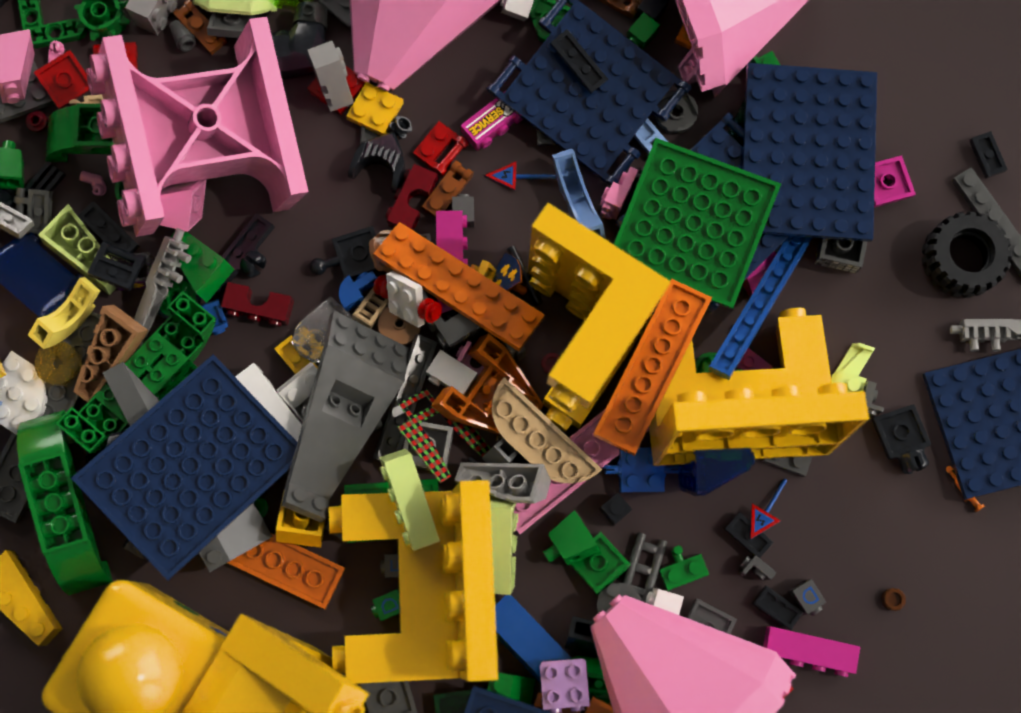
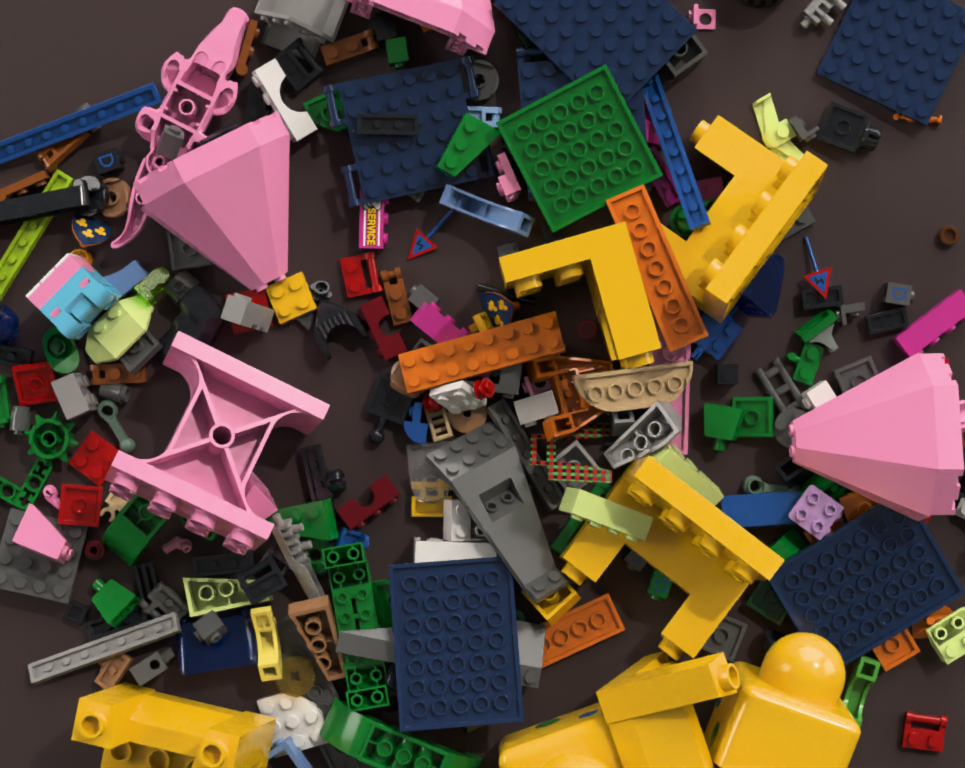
camera: 50 degrees left, 10 degrees up
(40, 256) = (209, 628): none -> dark grey brick
(157, 51) = (126, 444): none -> sand green piece
(548, 625) = (765, 487): none -> sand green piece
(616, 136) = (465, 144): none -> green wedge
(720, 557) = (819, 330): none -> green piece
(726, 319) = (664, 184): none -> magenta plate
(880, 237) = (694, 18): none -> bright pink bracket

